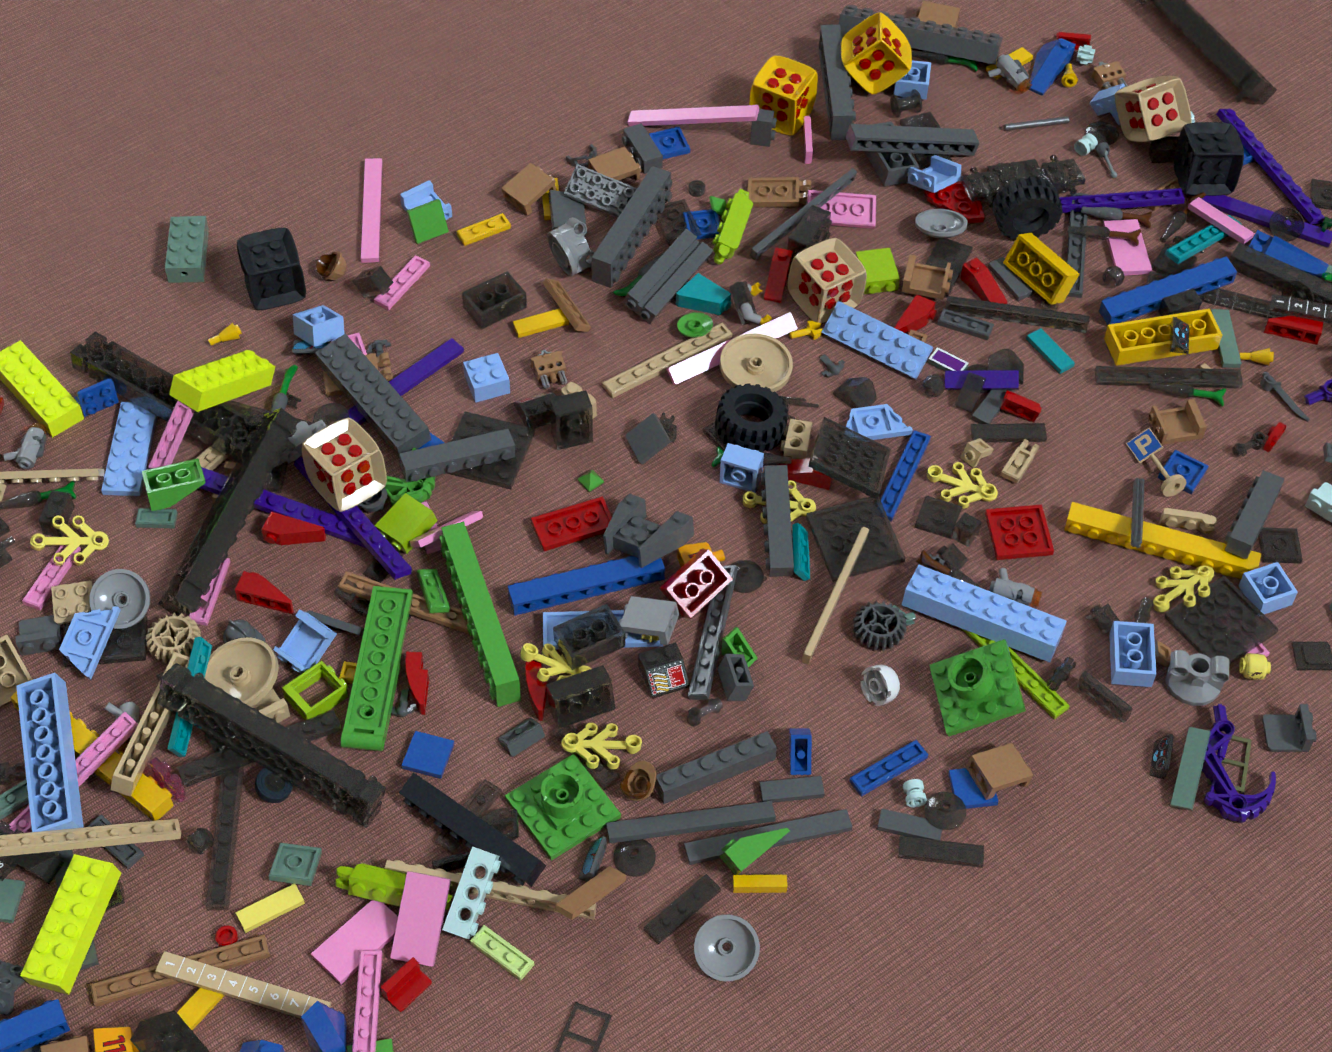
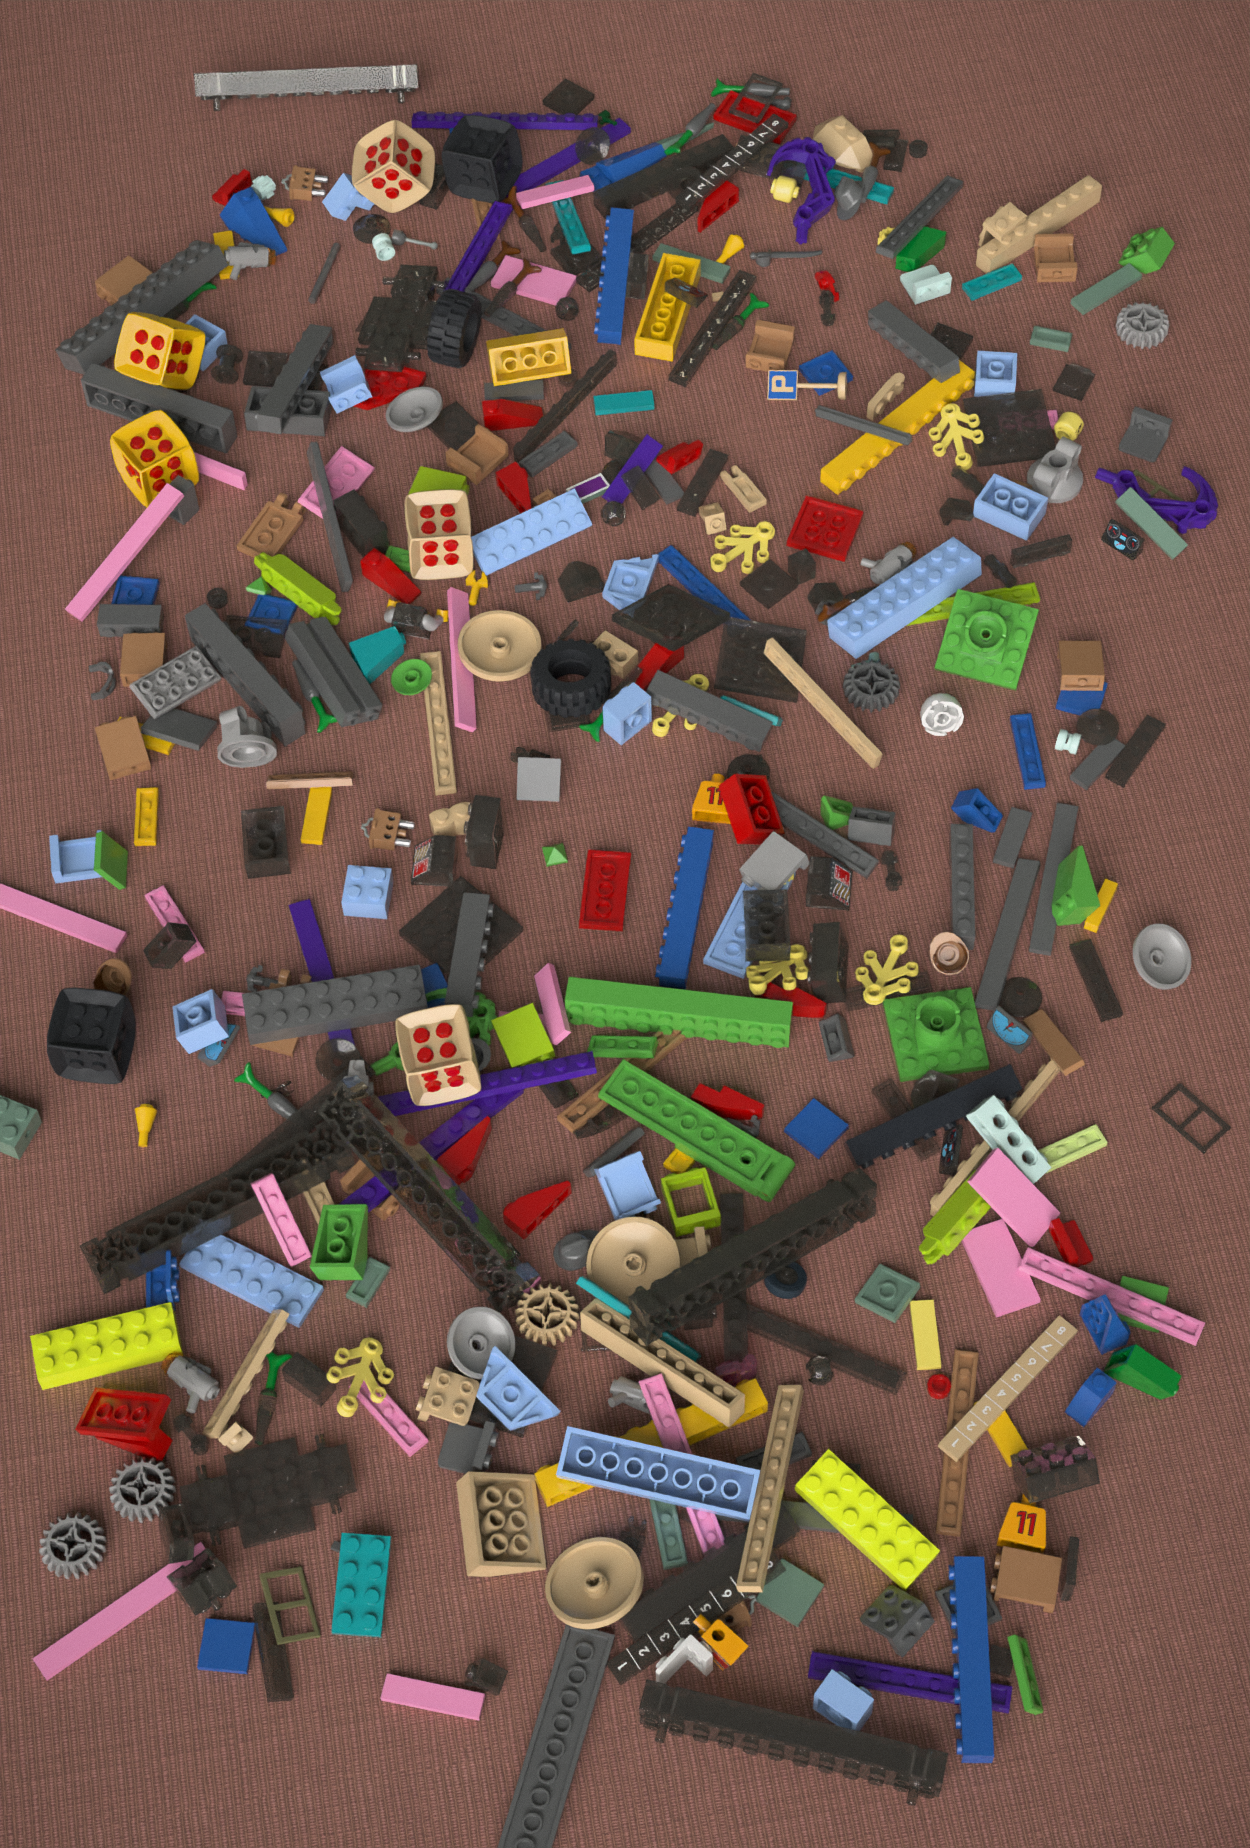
camera: 60 degrees left, 5 degrees up
(222, 380) = (237, 1137): neon yellow brick -> none
(642, 538) = (665, 833): dark grey wedge -> none

